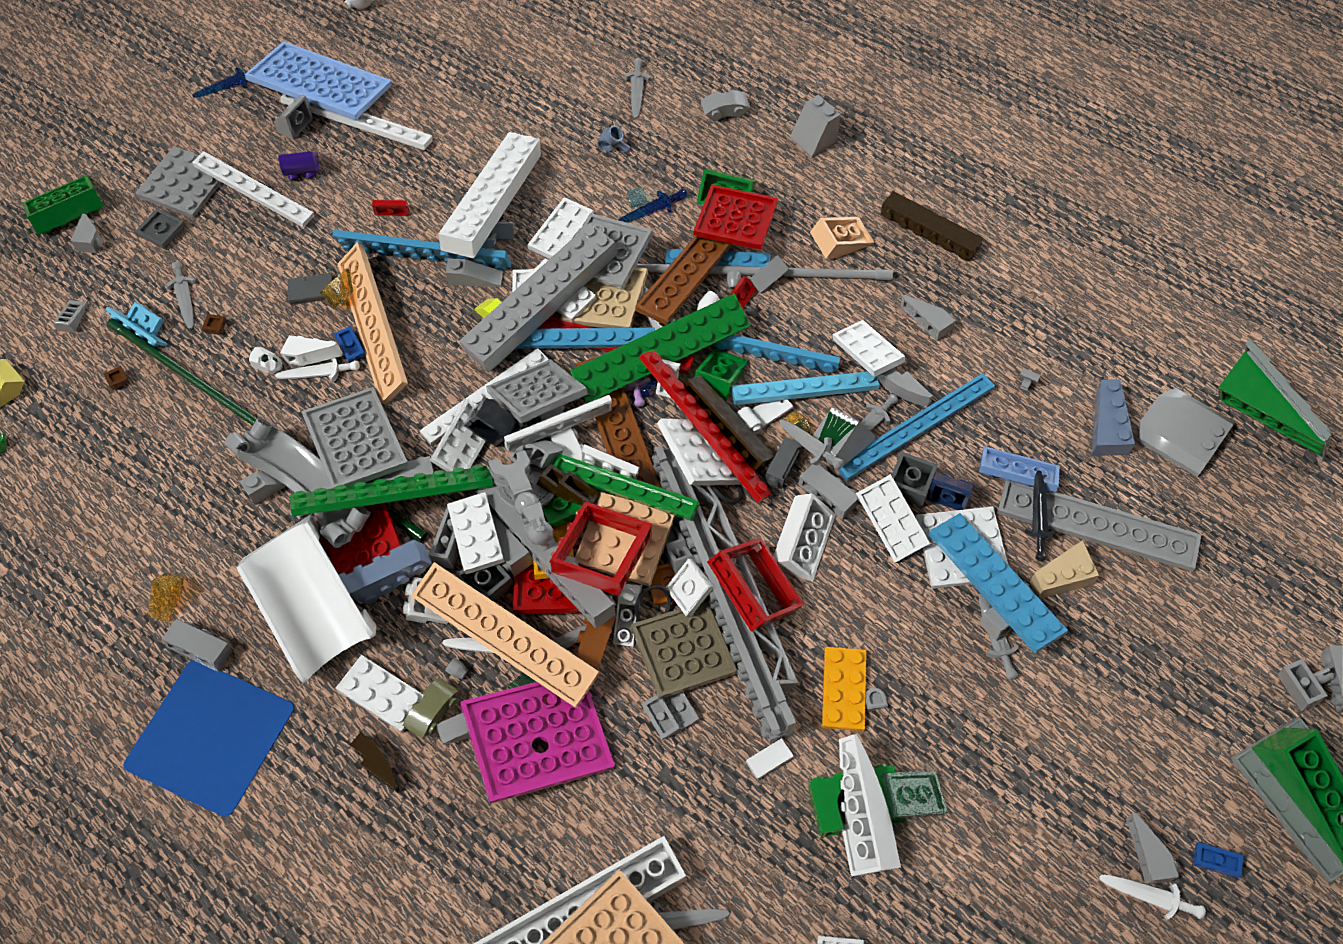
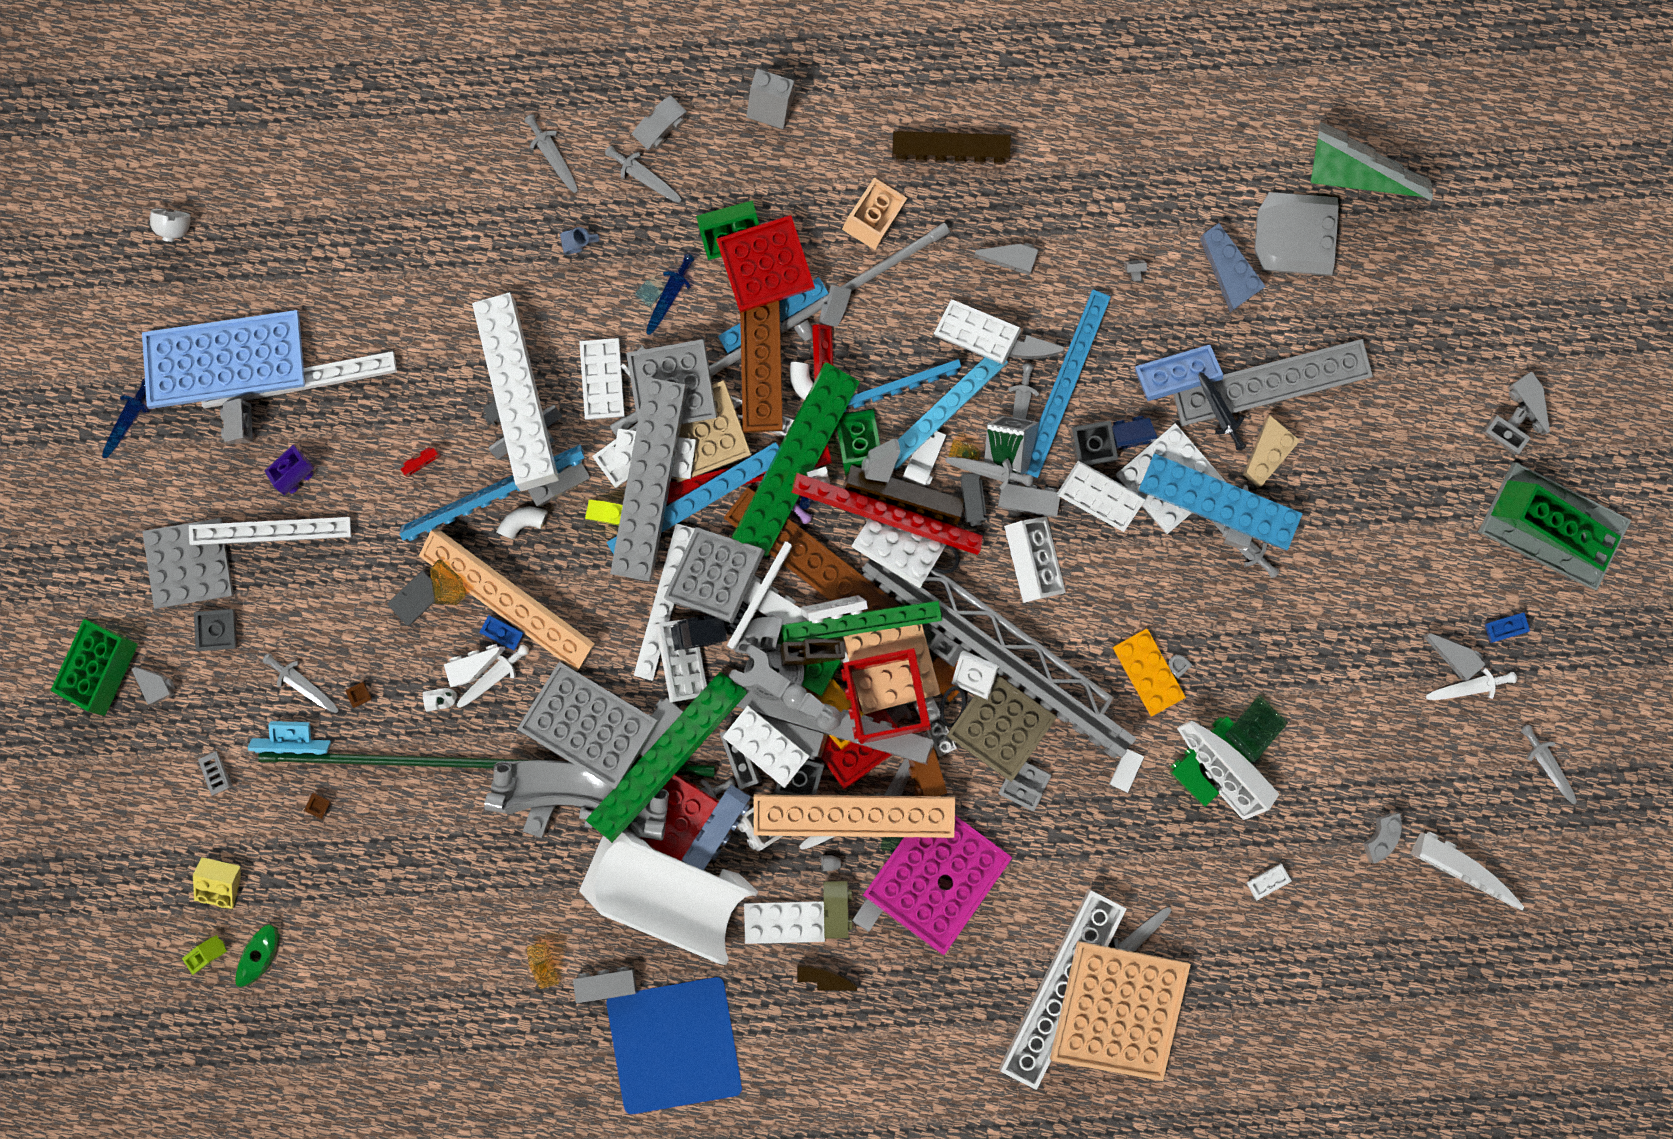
camera: 30 degrees left, 25 degrees up
(429, 280) = (522, 518): none -> white cylinder
(689, 129) = (642, 174): none -> light grey sword
(725, 382) = (881, 461): none -> light grey slope
(740, 592) = (1020, 659): red window -> none

